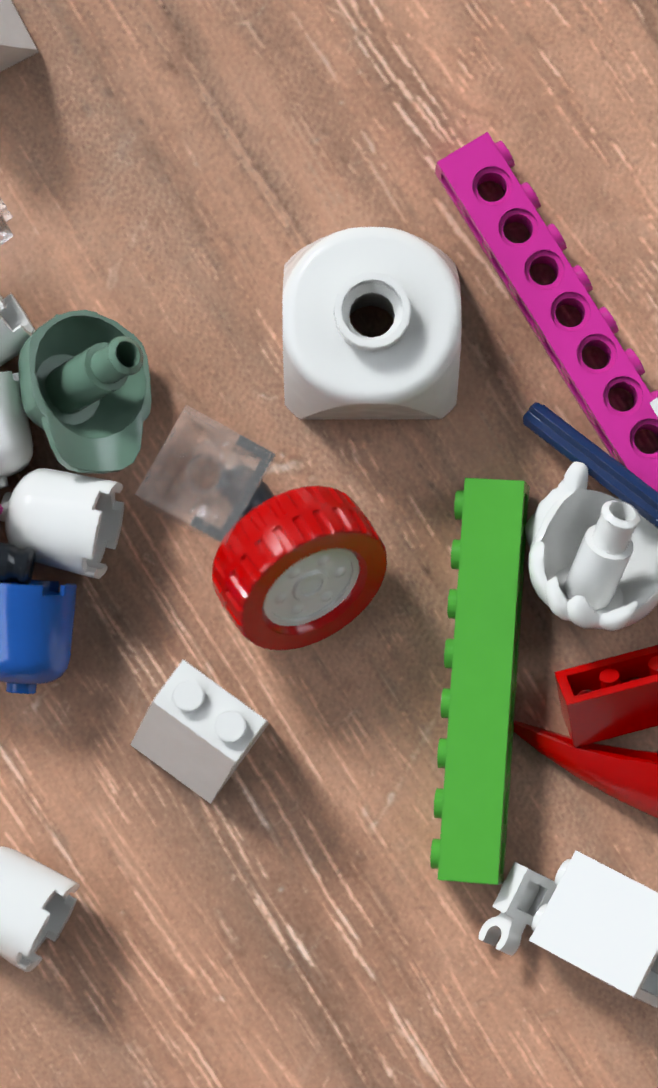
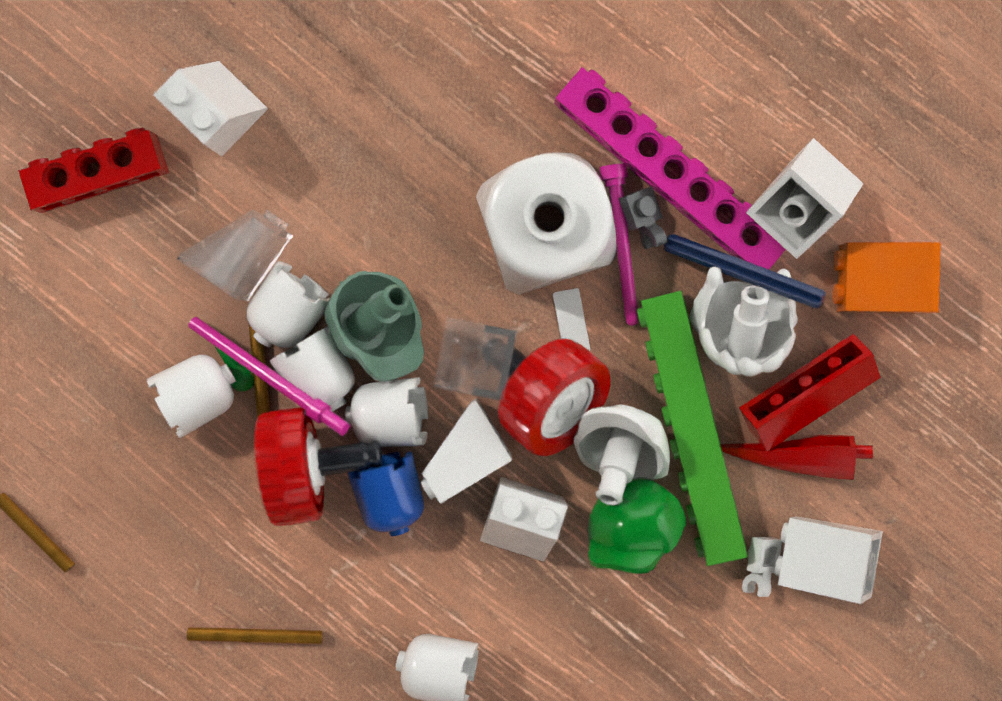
camera: 15 degrees left, 5 degrees up
(149, 610) = (466, 455): none -> white slope
(352, 785) = (636, 531): none -> green piece
(363, 471) = (571, 316): none -> white sticker
(370, 670) = (621, 446): none -> white piece
(485, 299) = (614, 178): none -> dark pink piece
(508, 358) = (641, 212): none -> dark grey plate

